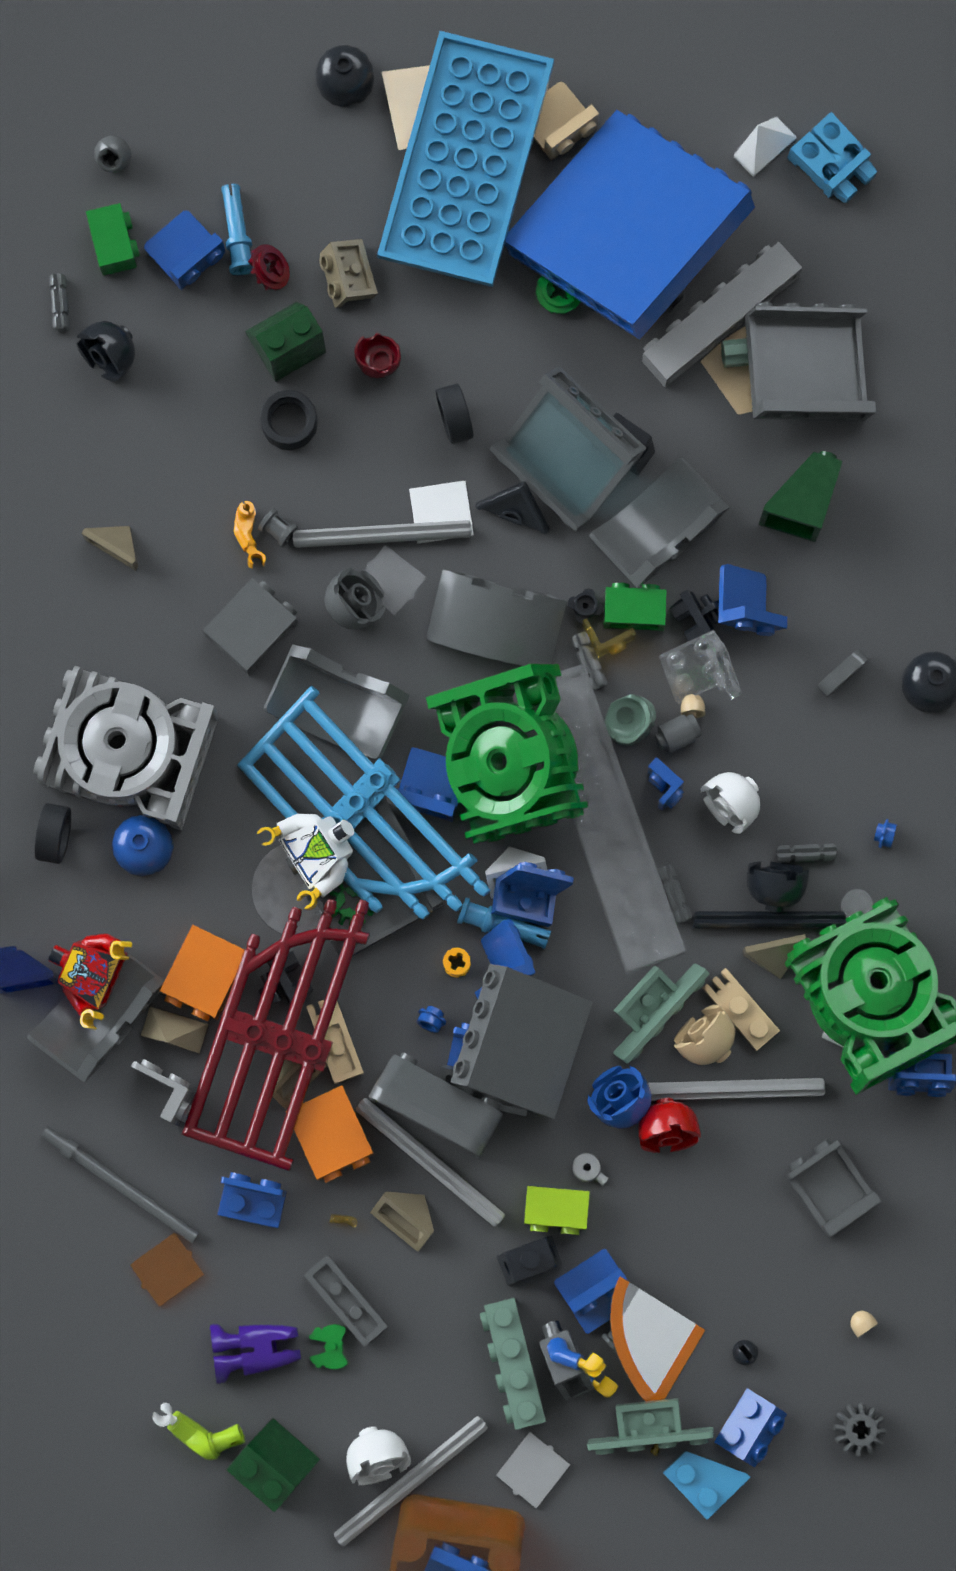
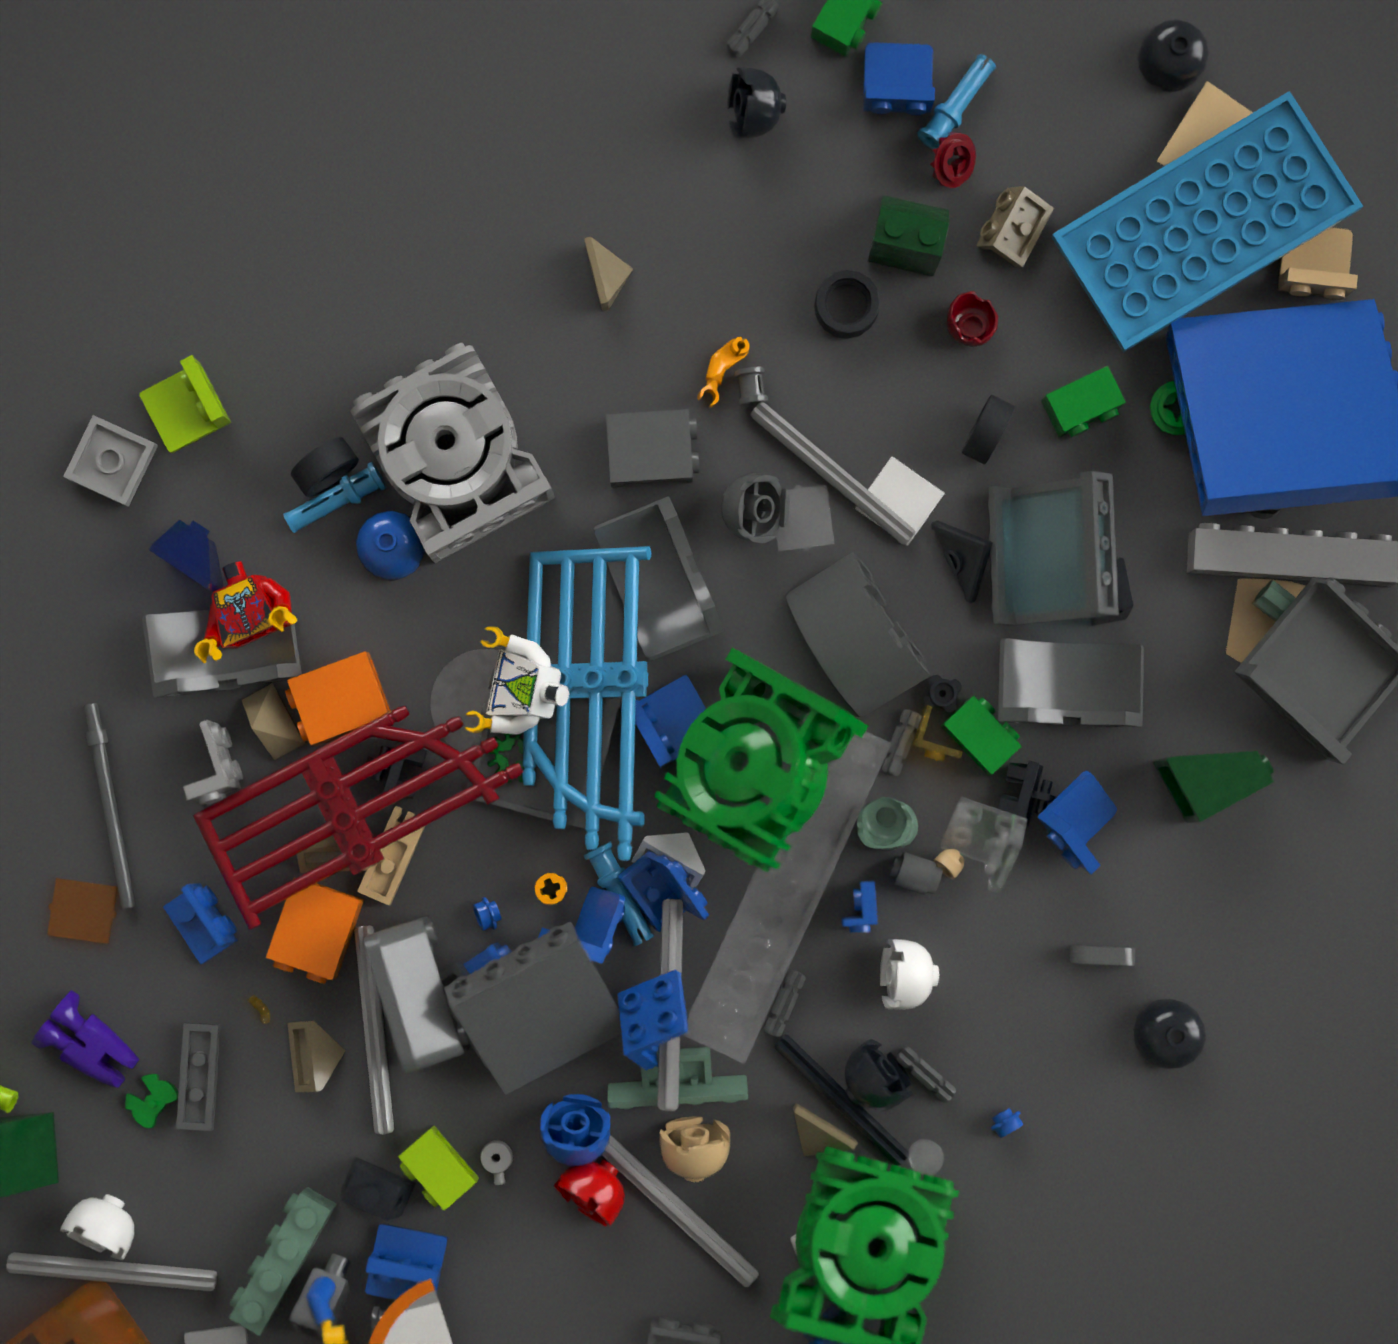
camera: 40 degrees right, 5 degrees up
(82, 835) = (349, 490): none -> dark azure pin
(498, 341) = (1084, 402): none -> green brick
(598, 976) = (651, 1016): none -> blue bracket
(603, 960) = (670, 960): none -> light grey axle
(742, 1010) = (746, 1153): tan hinge -> none

